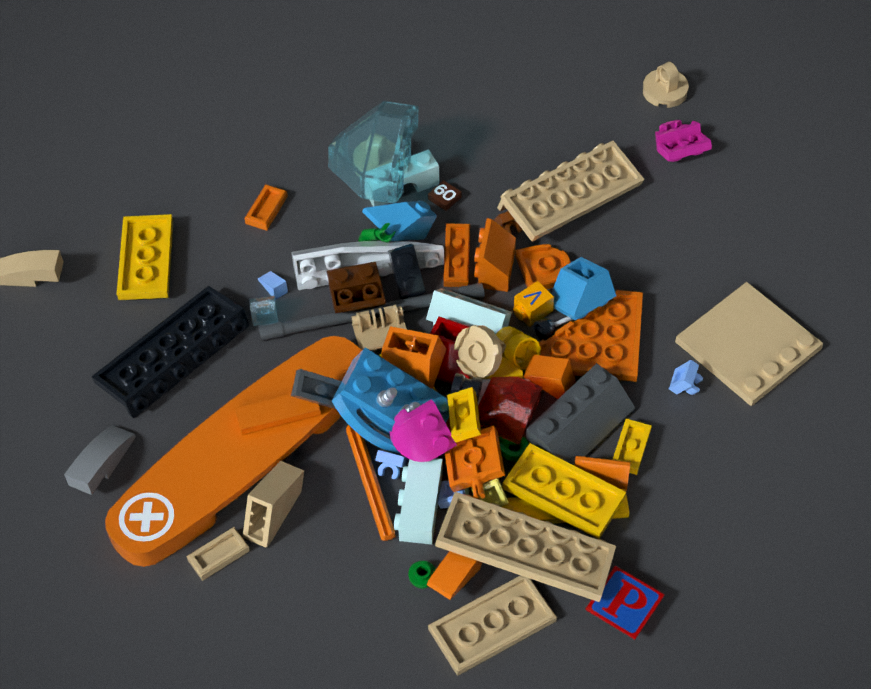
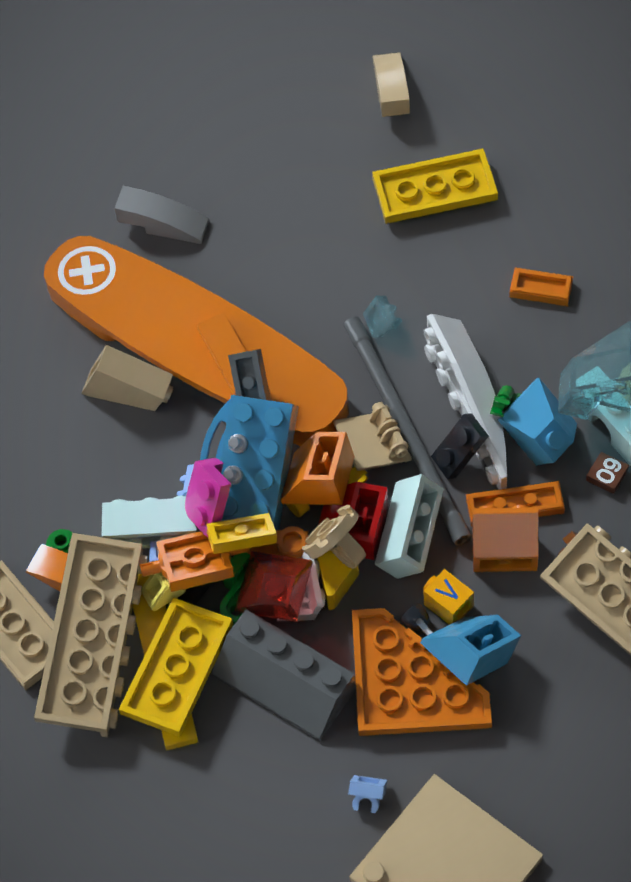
camera: 85 degrees right, 5 degrees up
(172, 350) = (310, 244): black bracket -> none
(218, 553) = (67, 350): tan tile -> none
(274, 284) = (418, 321): light blue piece -> none
(355, 287) = (422, 400): reddish brown slope -> none
(371, 485) = (157, 478): orange axle -> none
(461, 382) = (290, 535): black wheel -> none
(519, 346) = (368, 584): yellow wheel -> none
(541, 264) = (520, 602): orange tile -> none
(550, 373) = (335, 629): orange slope -> none
(610, 471) = (213, 710): orange slope -> none
(626, 602) = (44, 754): piece -> none
(632, 444) = (257, 738): yellow plate -> none

